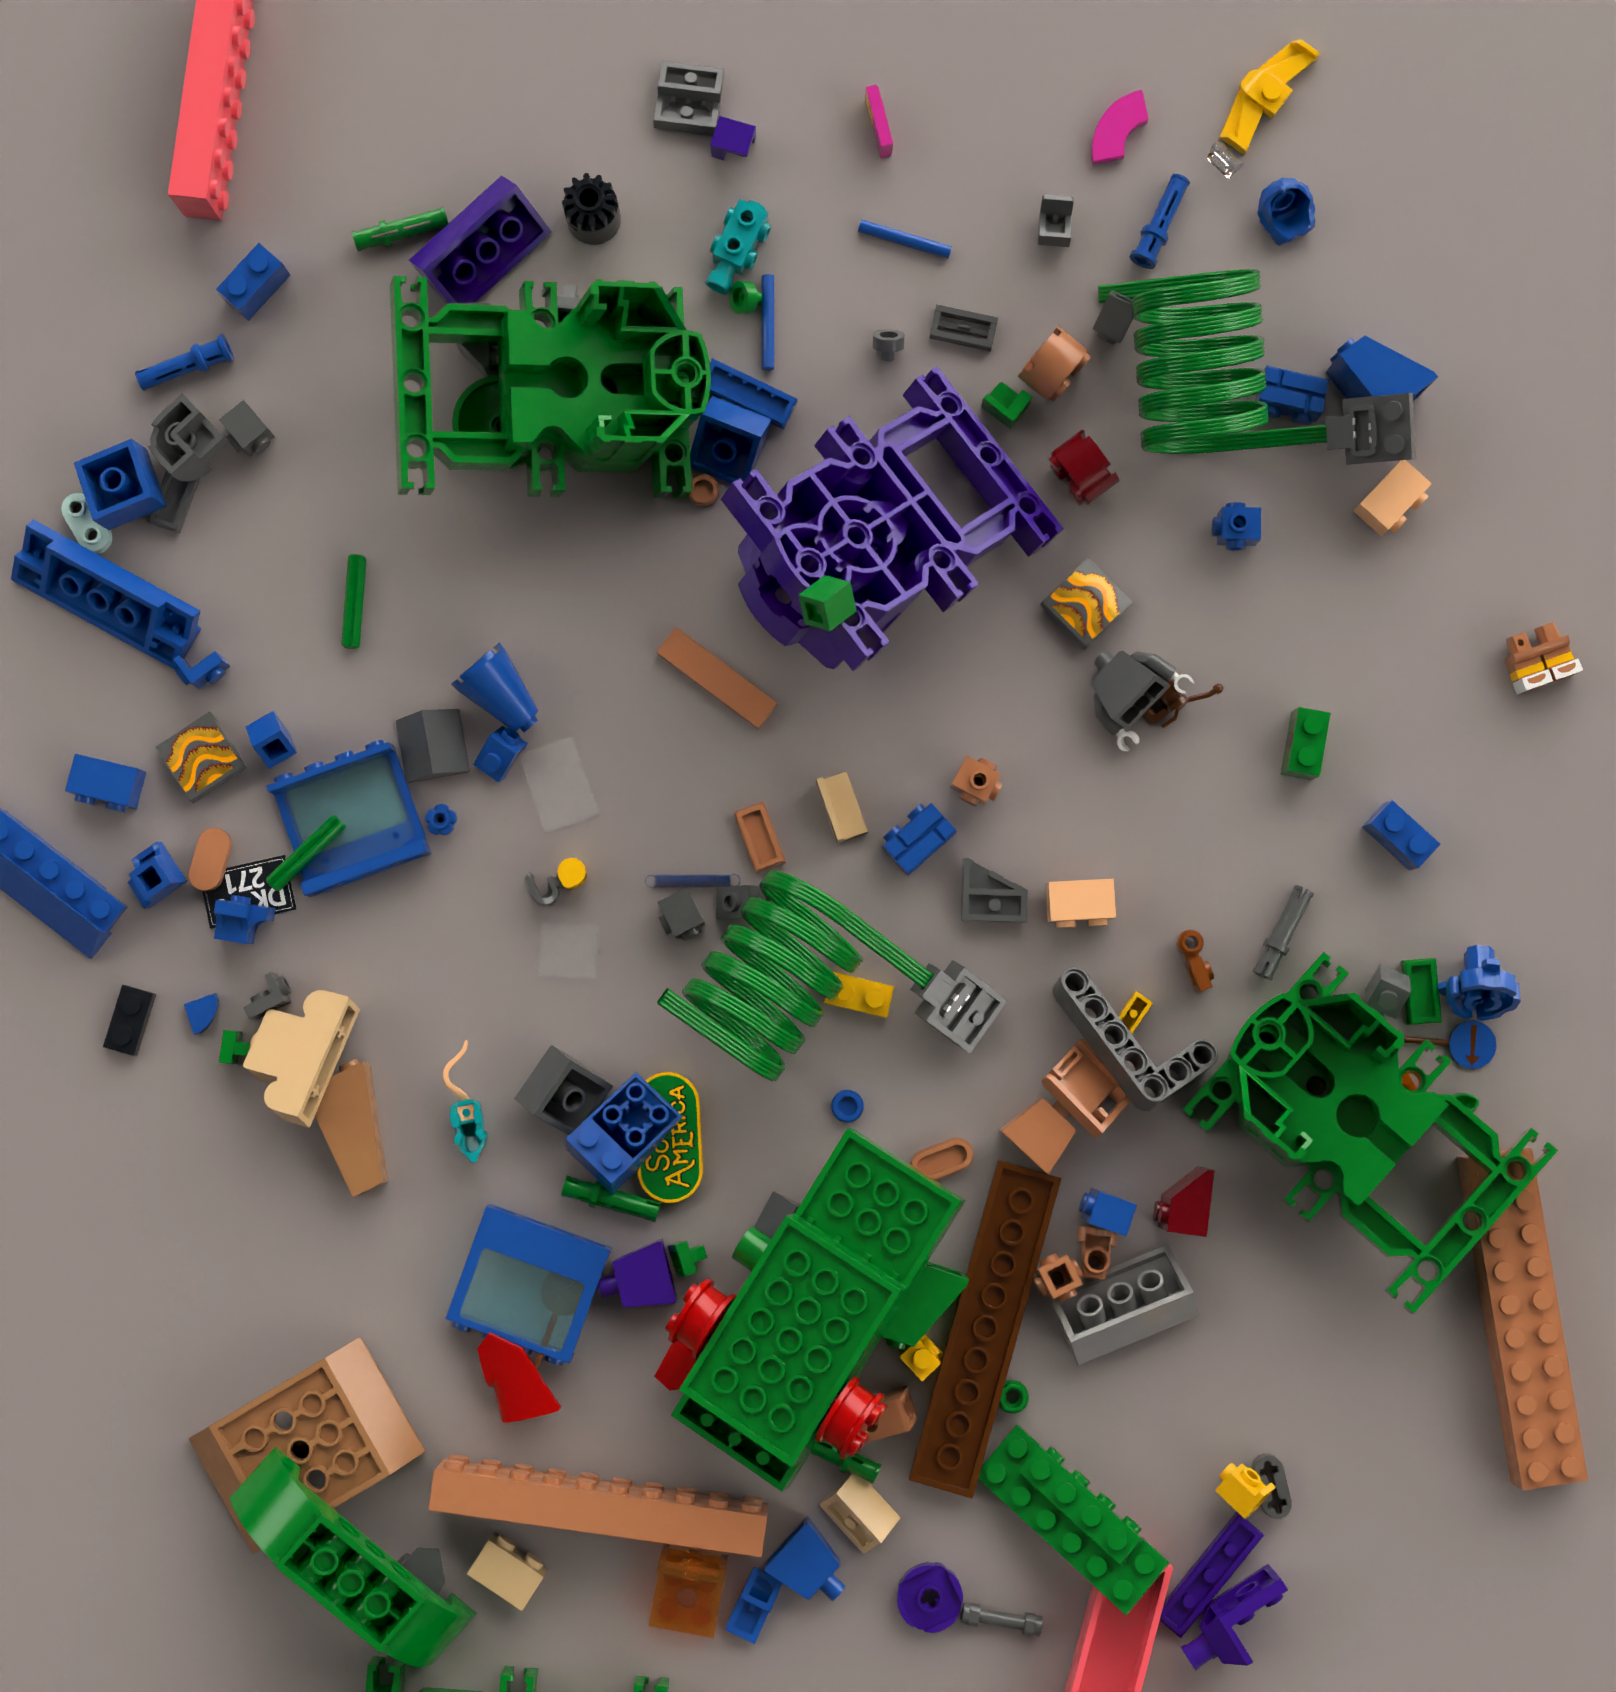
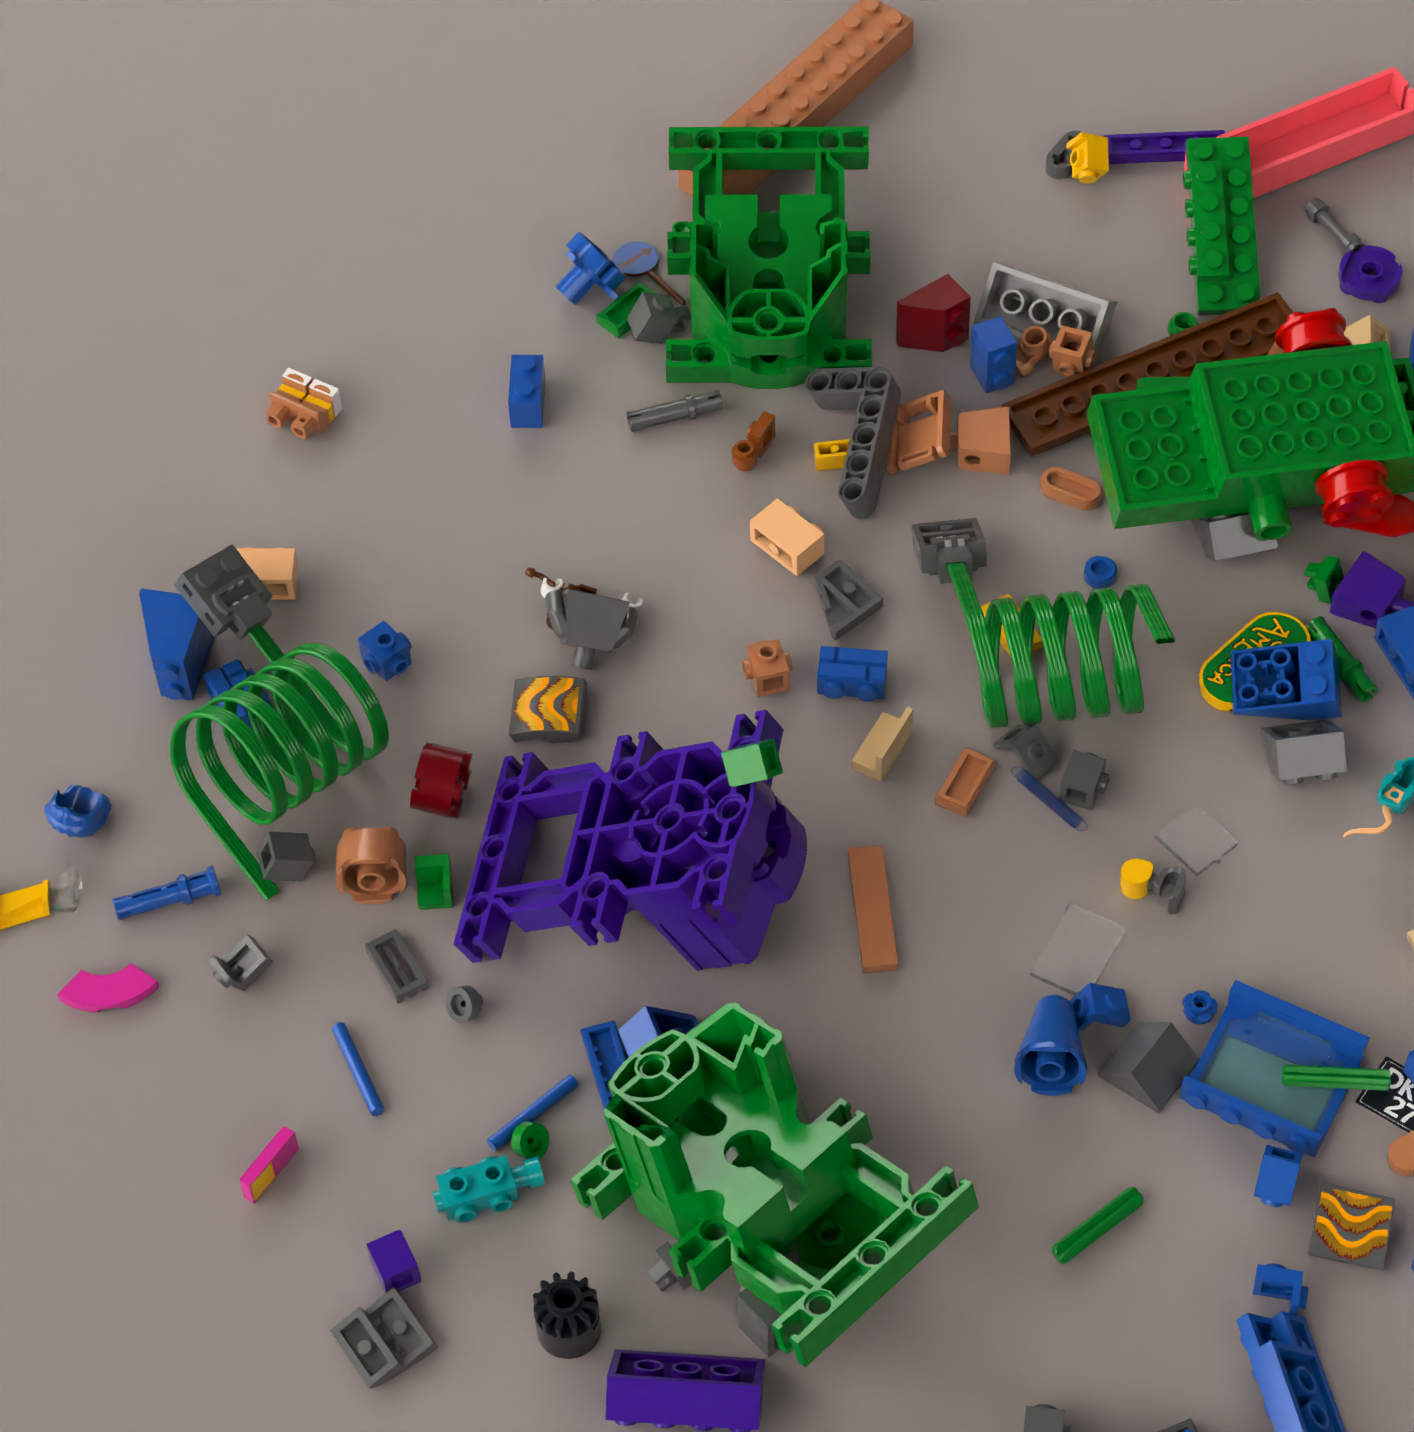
camera: 130 degrees left, 30 degrees down
(1226, 1610) = (1173, 107): dark purple plate -> none
(1305, 743) = (517, 492): green brick -> none

